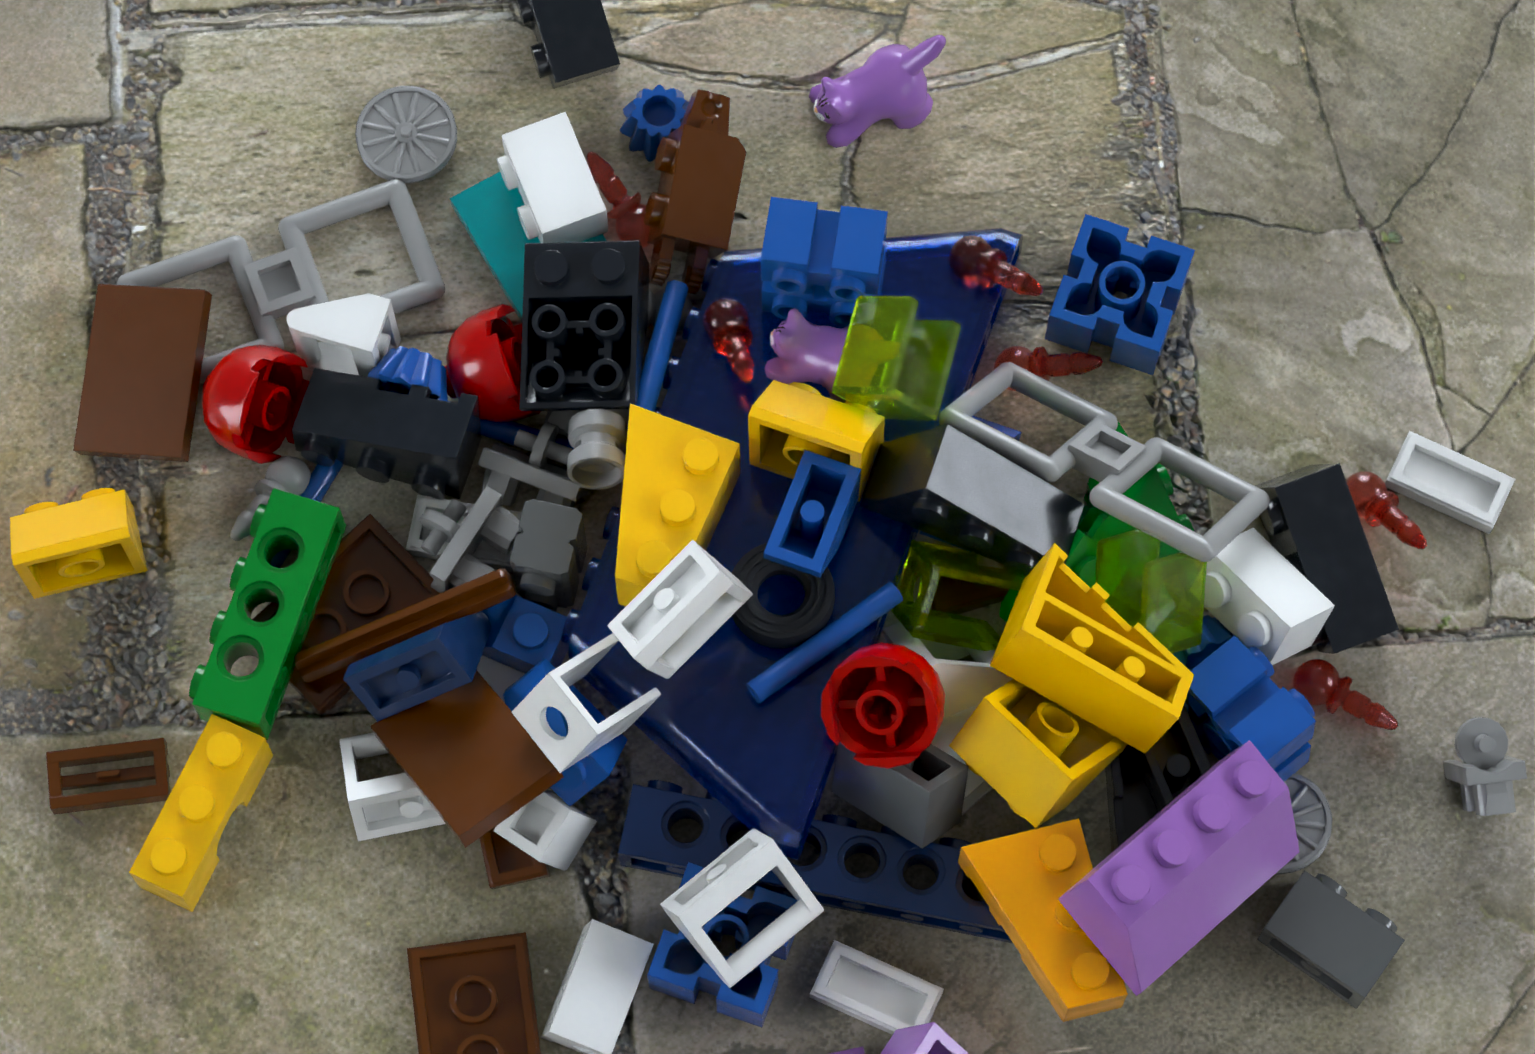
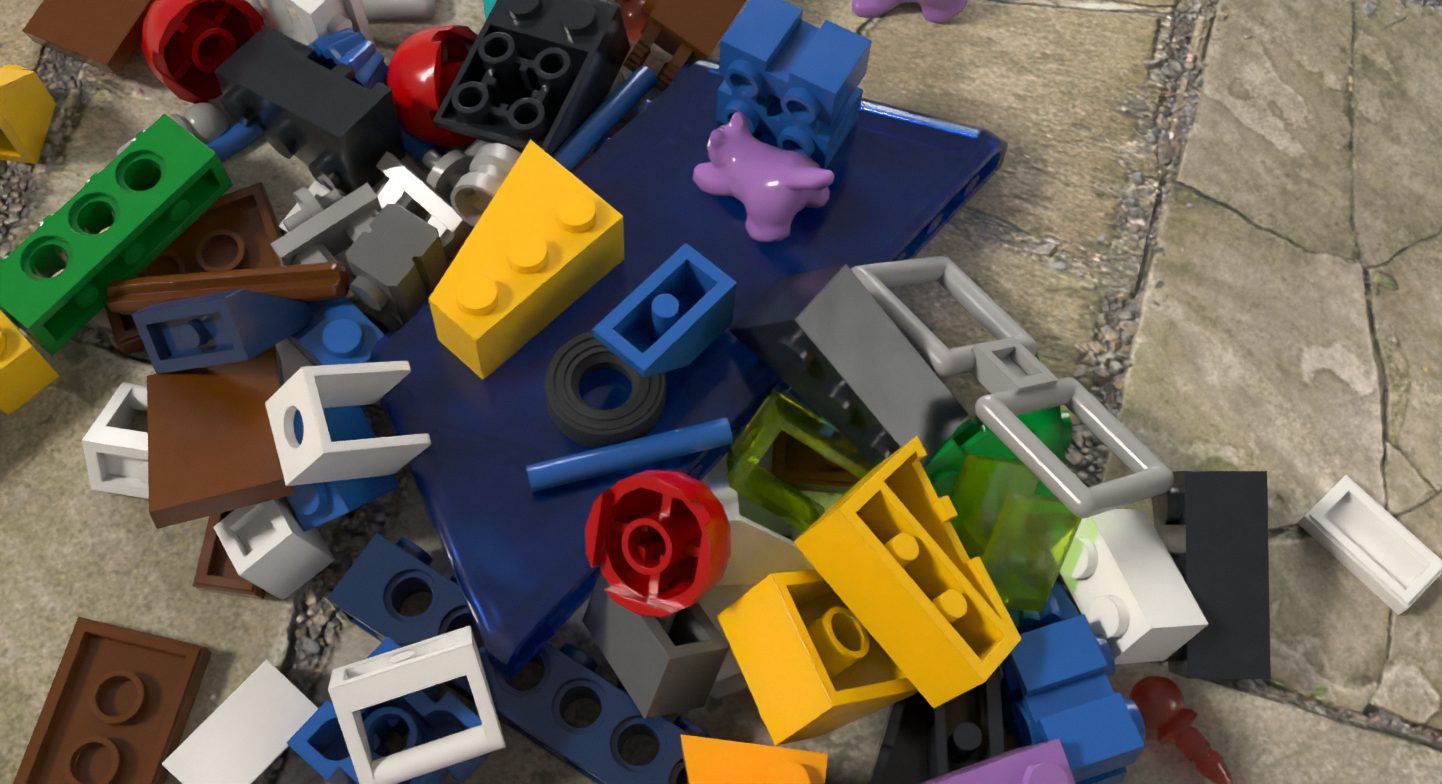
camera: 20 degrees right, 5 degrees down
(679, 611) = (469, 343): white tile -> none
(728, 327) = (673, 125): clear red bar -> none
(799, 419) = (684, 209): yellow slope -> none
(895, 361) = (799, 176): clear neon green piece -> none
(975, 260) = (951, 144): clear red bar -> none
(1049, 366) = (990, 278): clear red bar -> none
(1107, 264) = (1085, 230): blue brick -> none
(1380, 508) = (1290, 543): clear red bar -> none

